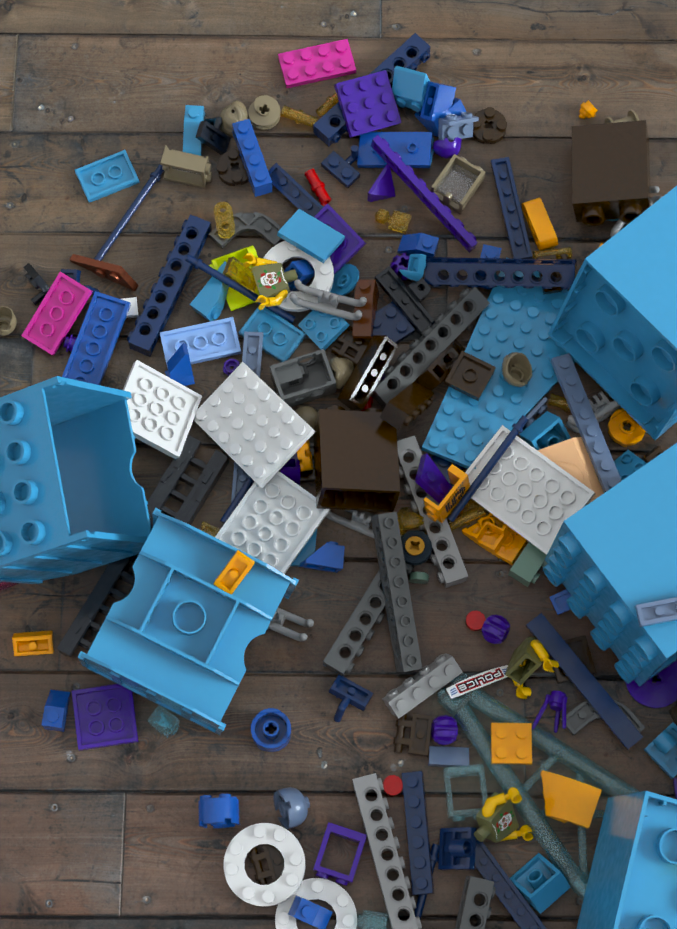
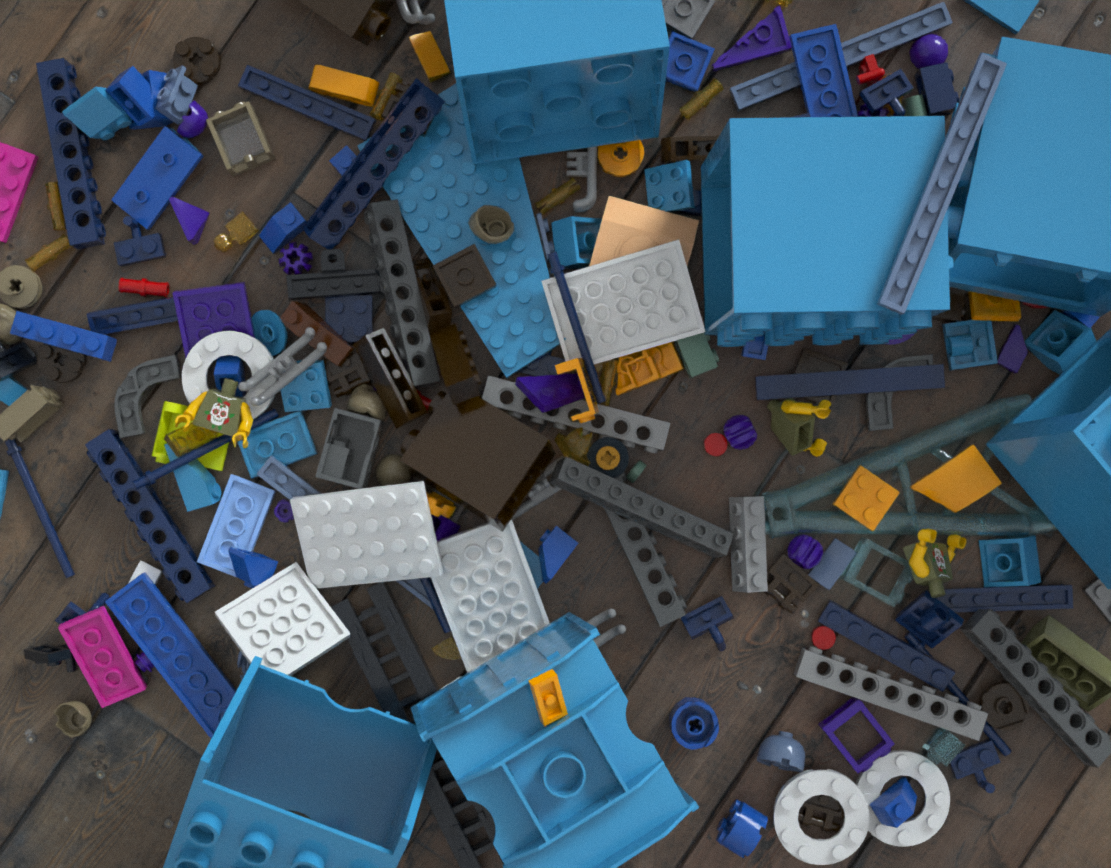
camera: 60 degrees left, 15 degrees up
(106, 270) = (86, 575): copper wing -> none
(224, 218) = (114, 412): clear yellow plate -> none
(311, 235) = (197, 335): dark azure tile -> none
(367, 103) = (85, 171): dark purple plate -> none
(416, 267) = (308, 249): dark azure plate -> none
(420, 189) = (220, 183): dark purple plate -> none
(477, 681) = (780, 487): sticker -> none
(557, 702) = (852, 421): dark purple plant -> none
(586, 421) = (618, 199): sand blue plate -> none

